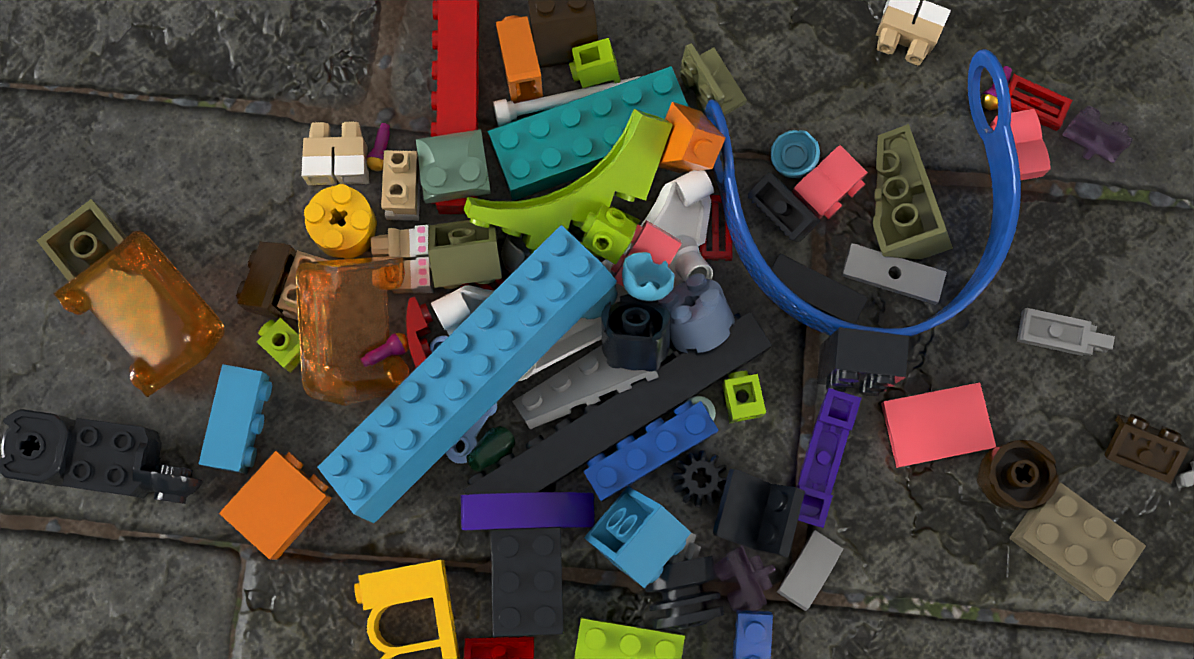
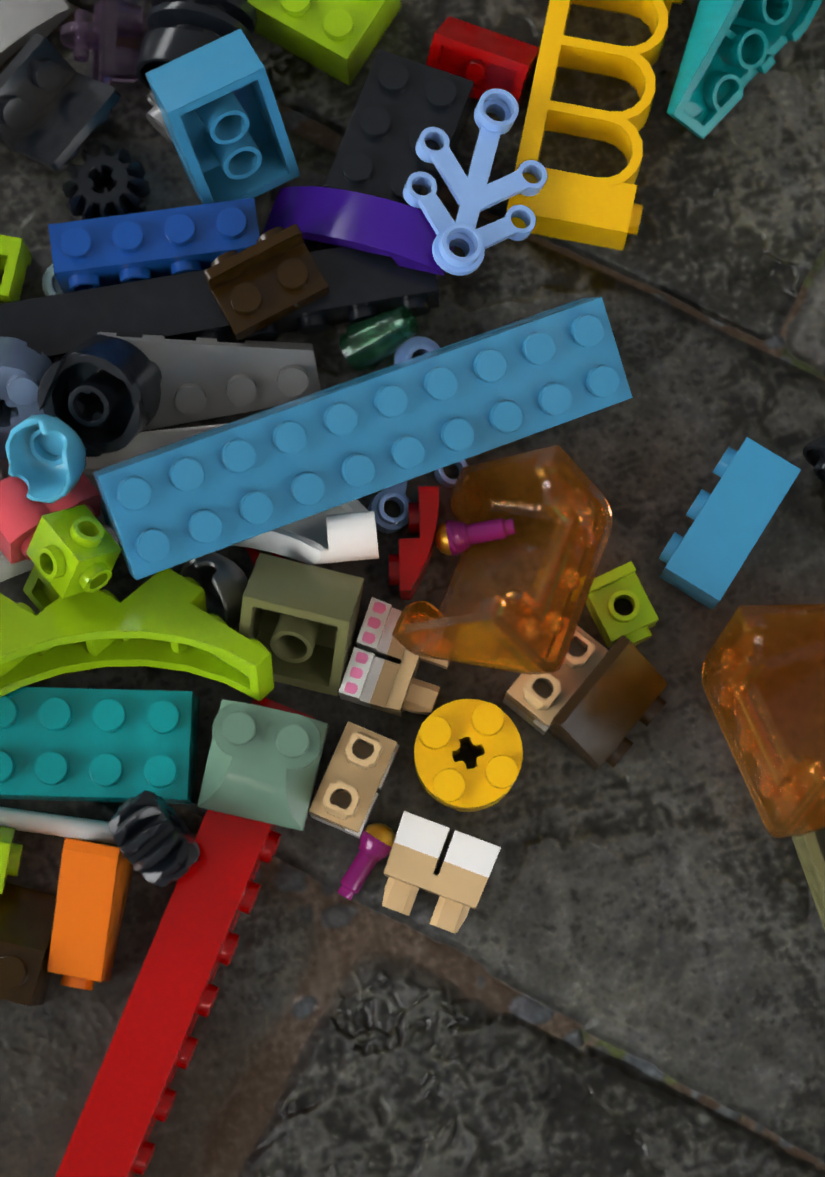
camera: 150 degrees left, 0 degrees up
(276, 504) = (709, 380): orange brick -> none
(461, 554) = (472, 191): none -> light blue plant
(494, 98) = (154, 838): none -> black gear
(568, 446) = (265, 281): none -> dark brown bracket

